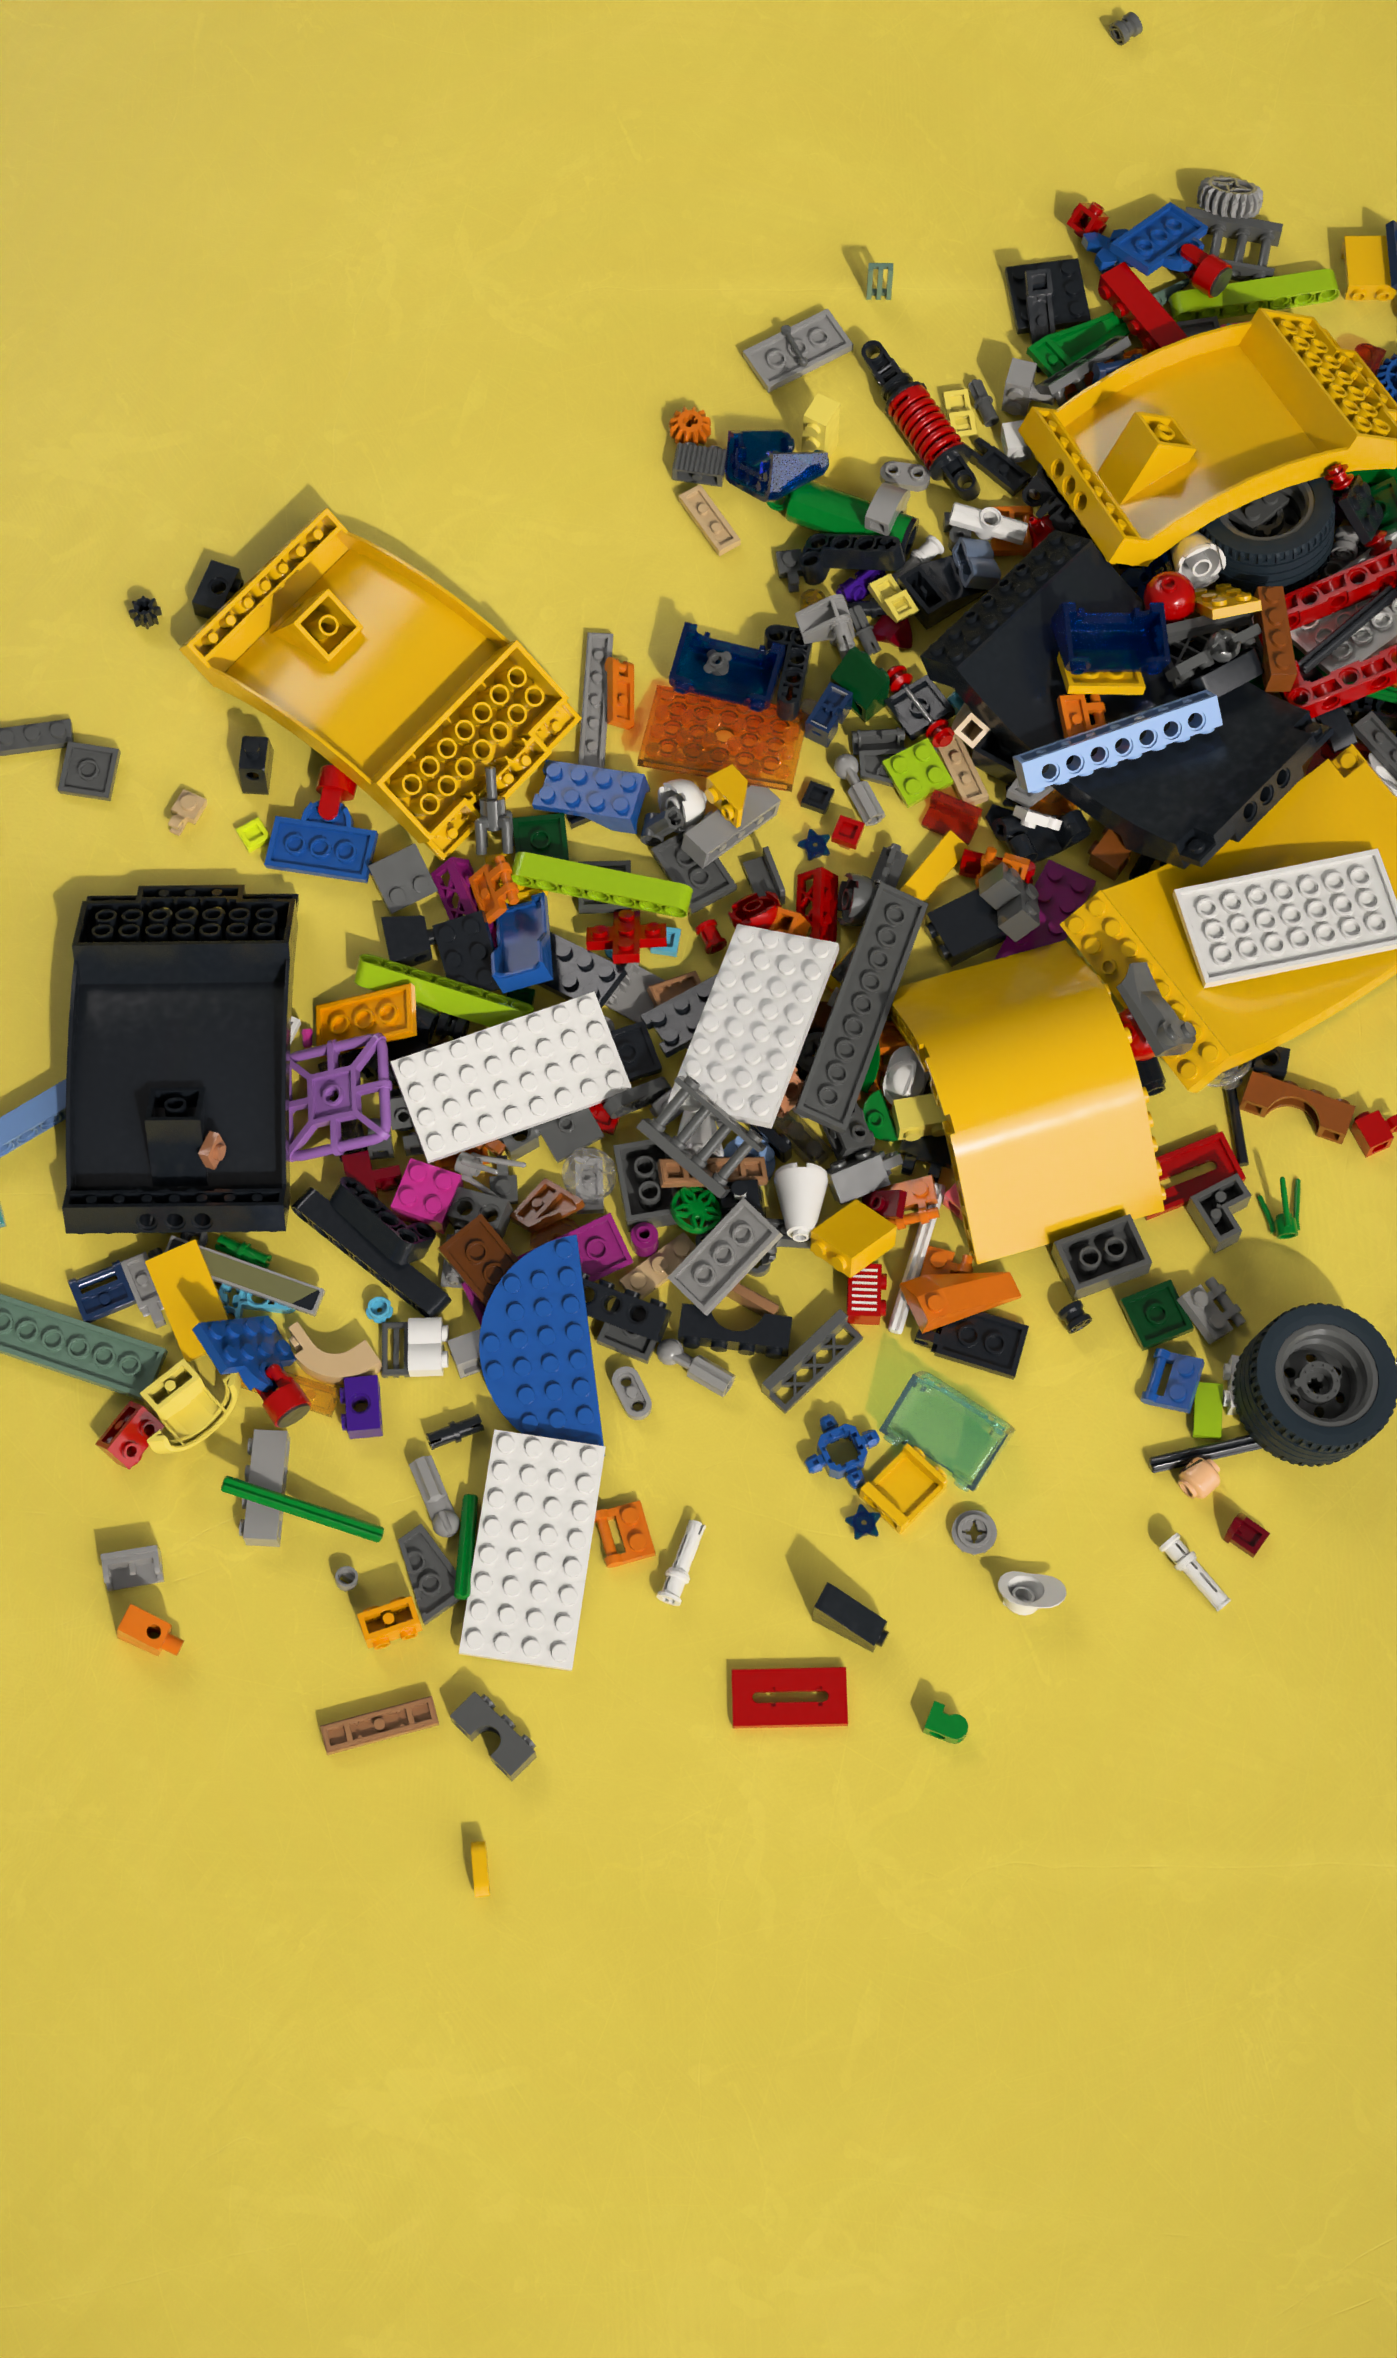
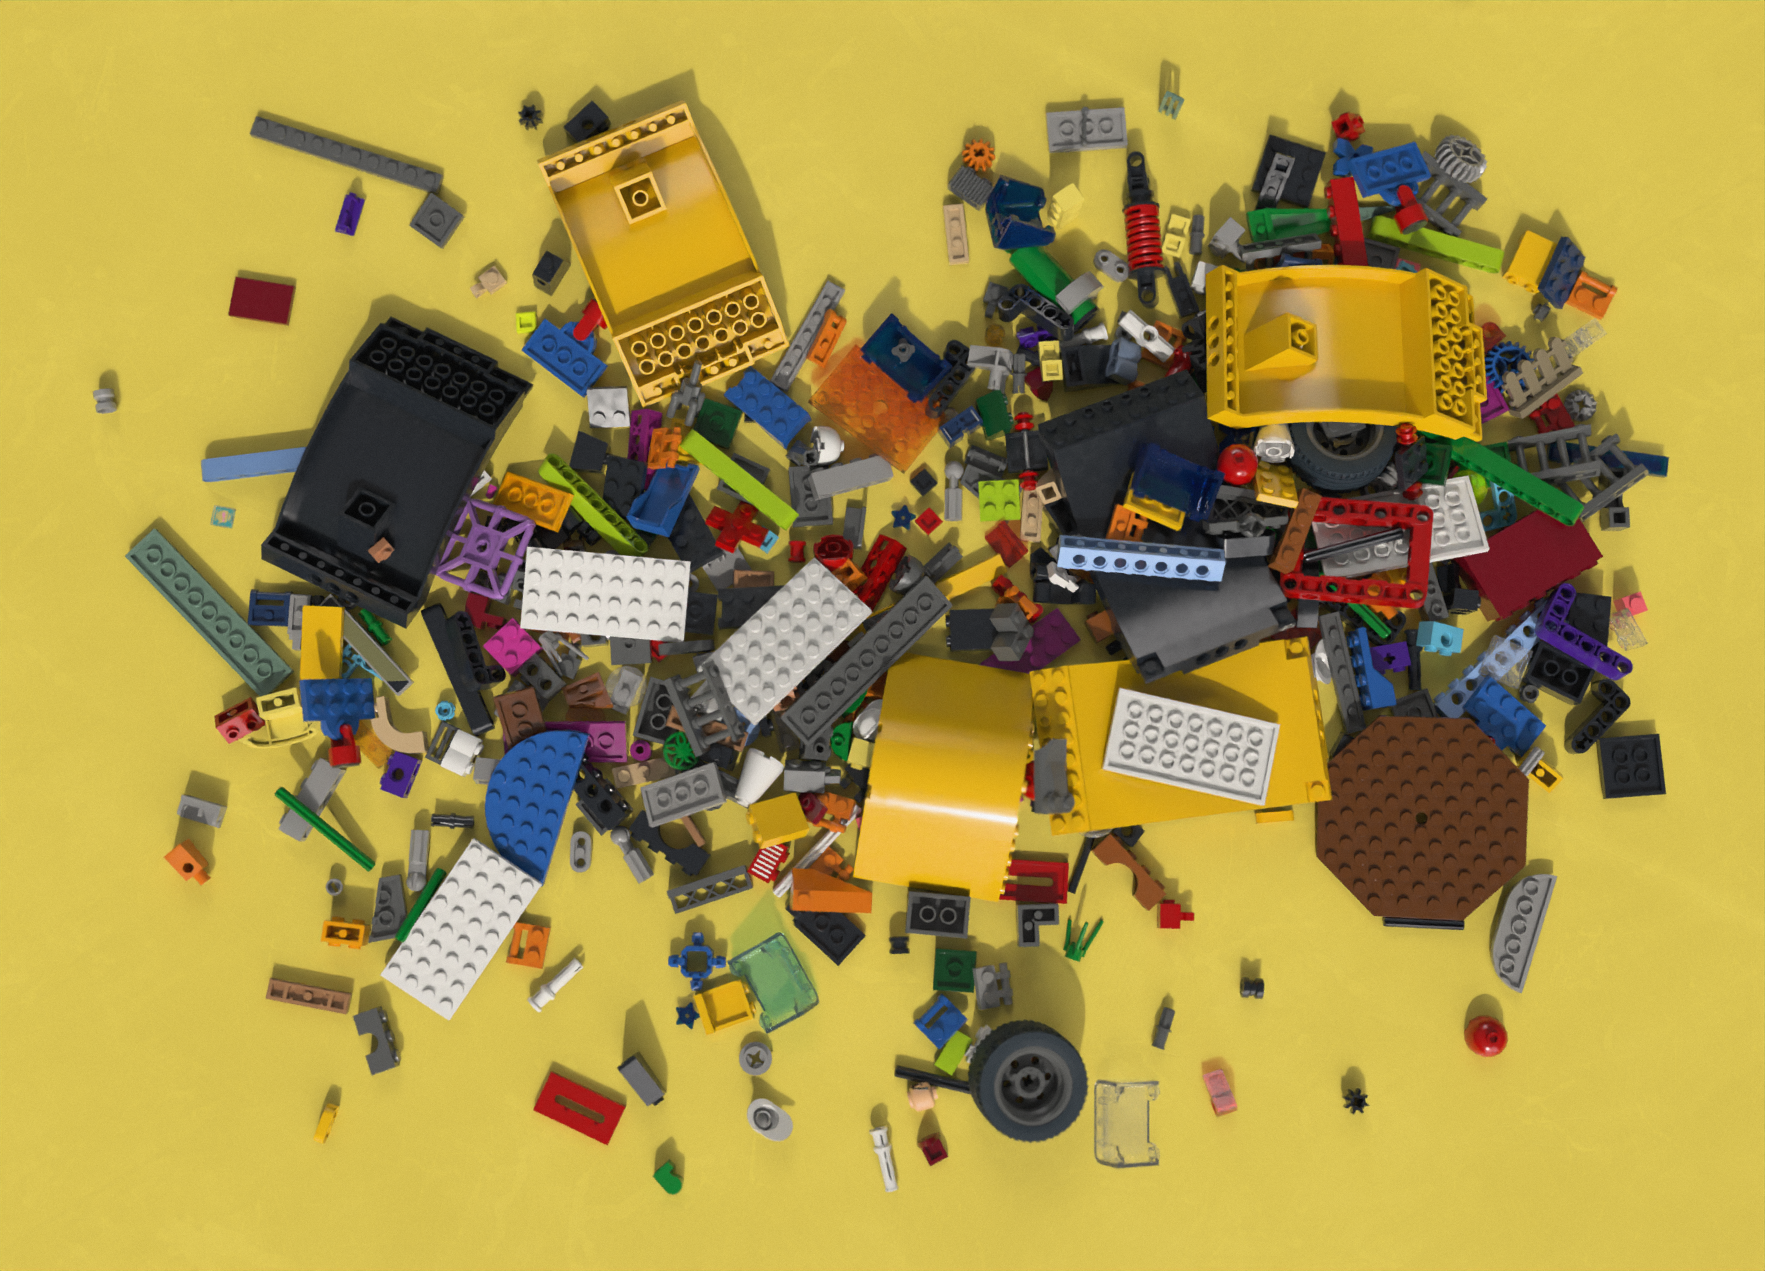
camera: 20 degrees right, 15 degrees up
(728, 793) = (857, 458): yellow slope -> none

